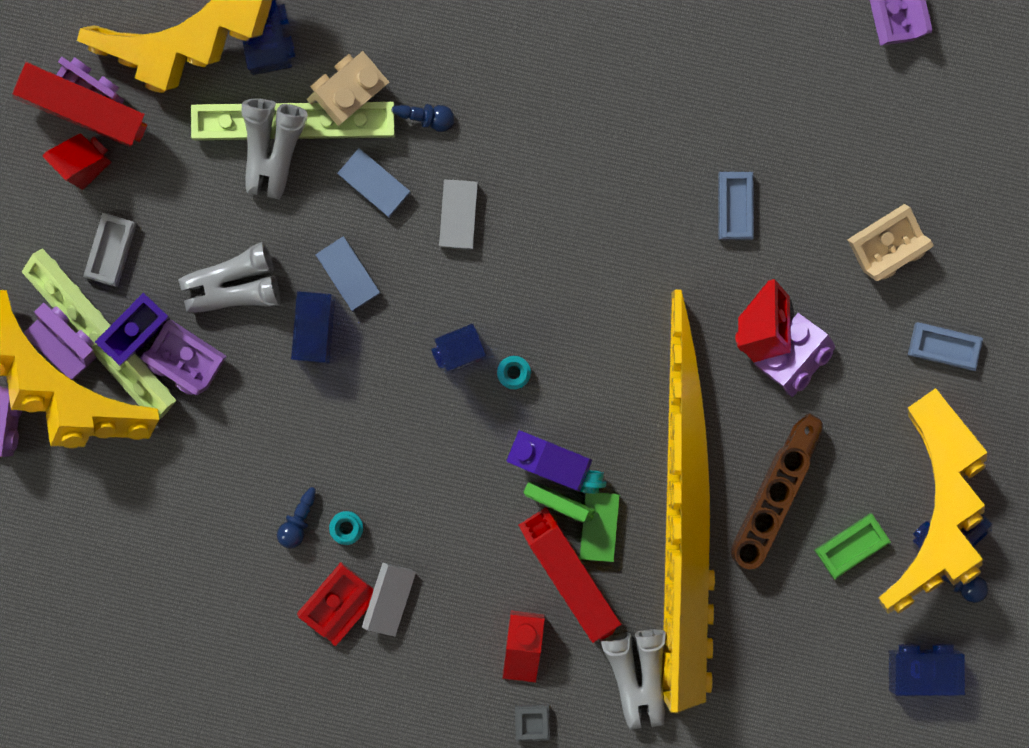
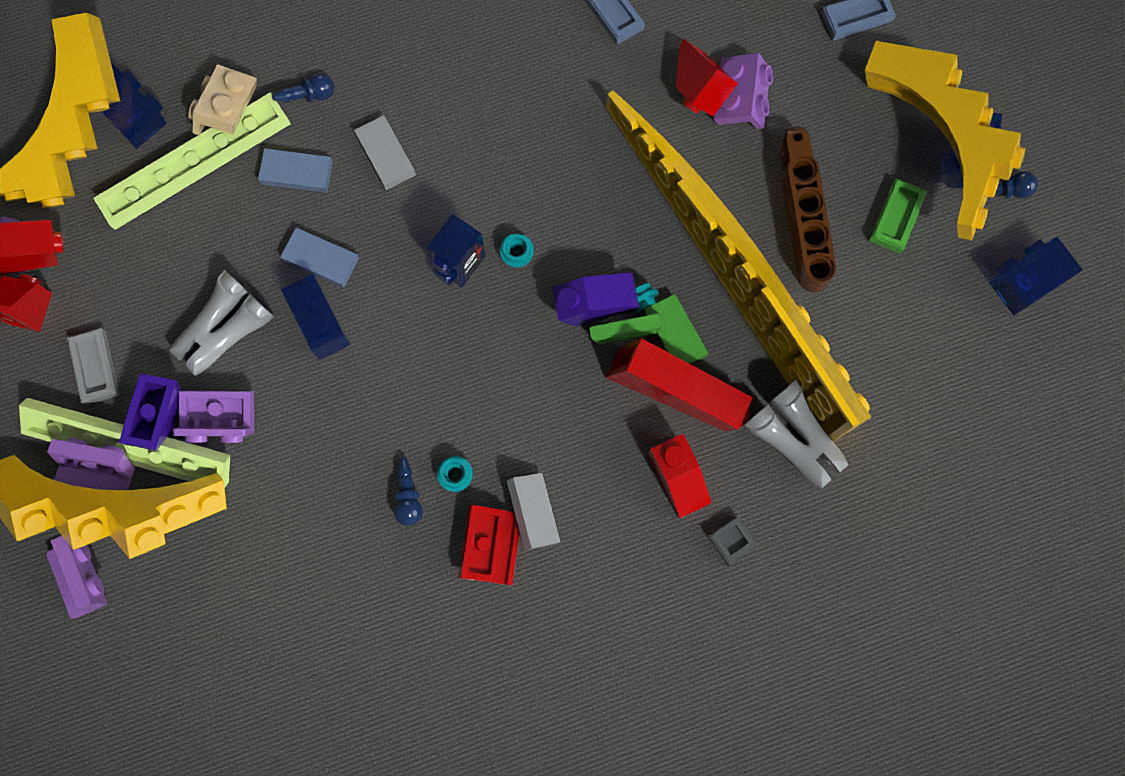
camera: 35 degrees left, 10 degrees down
(258, 120) = (161, 173): light grey piece -> none

